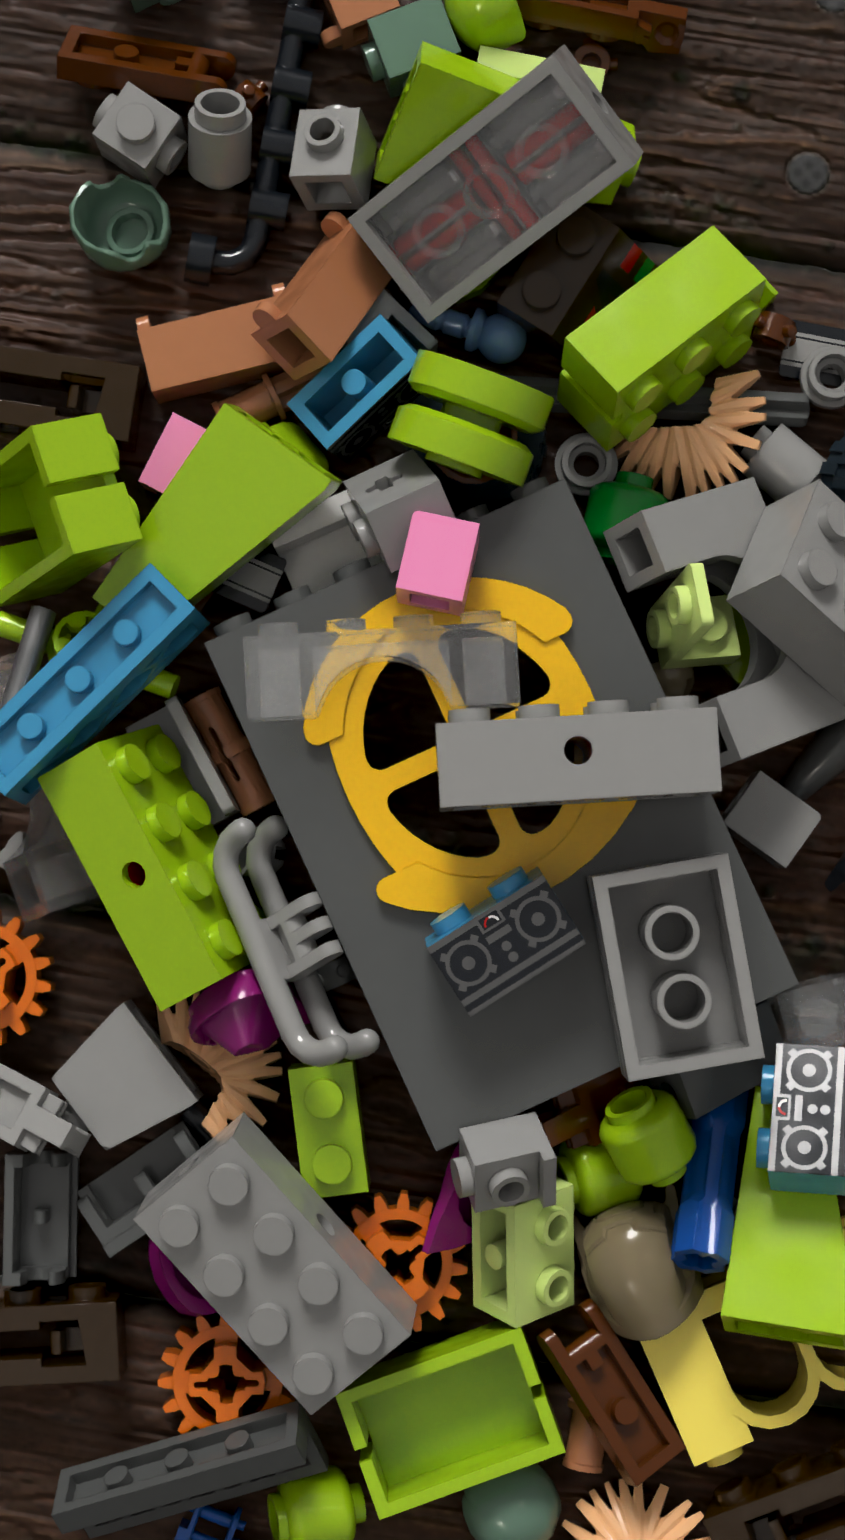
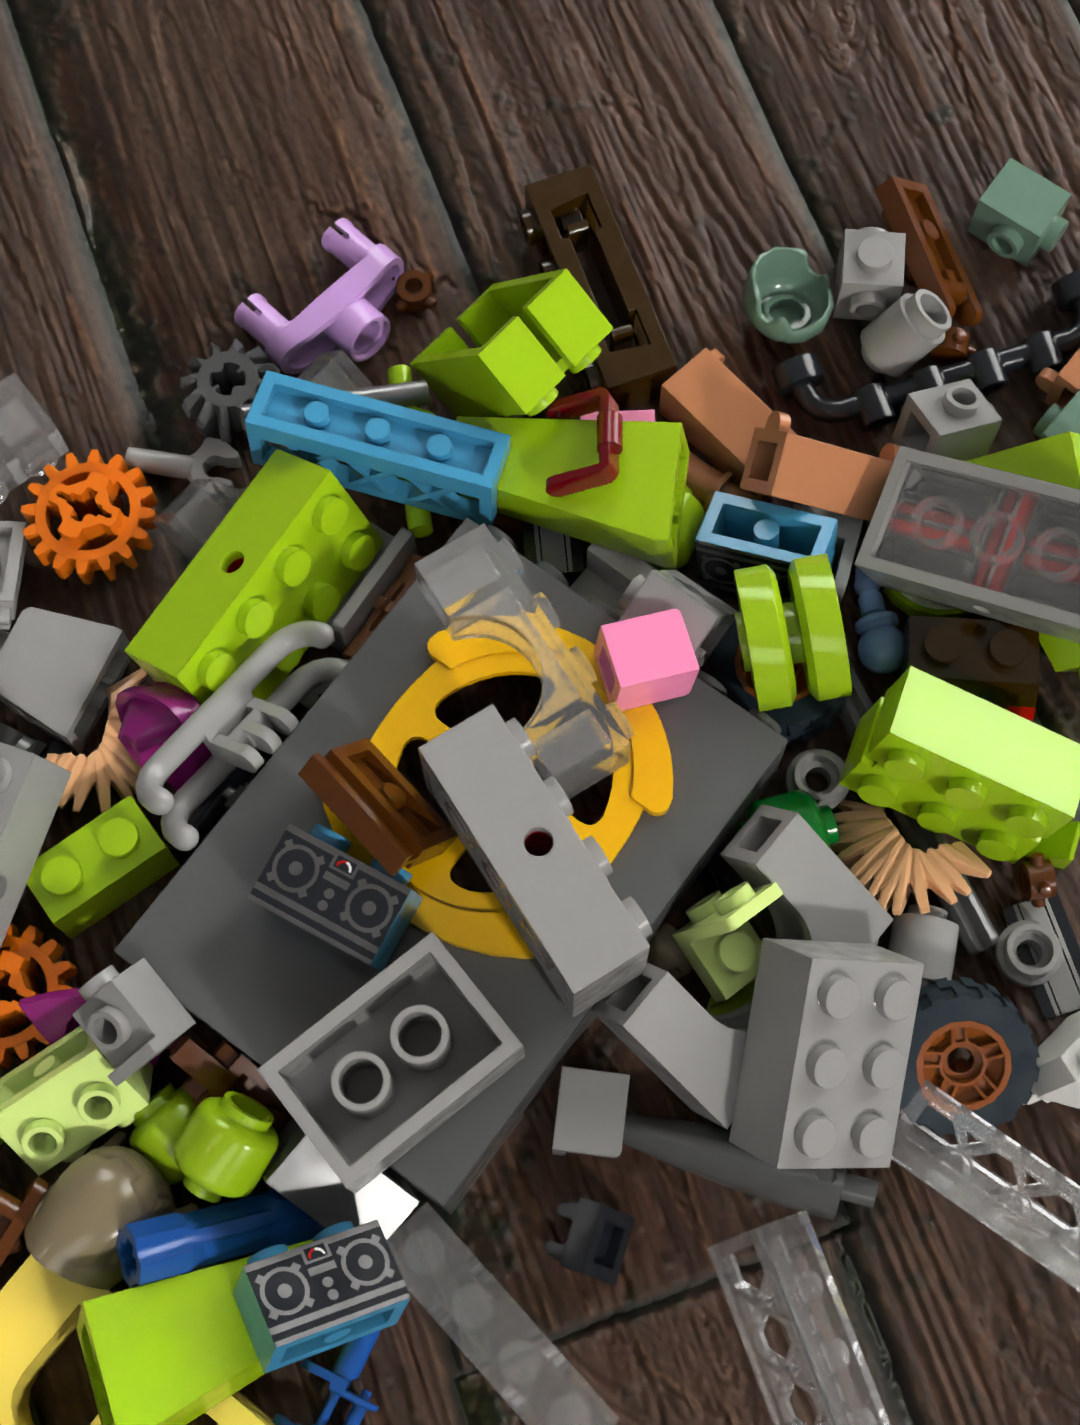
camera: 60 degrees right, 15 degrees down
(203, 476) = (608, 441): none -> dark red piece
(447, 863) = (378, 805): none -> reddish brown plate

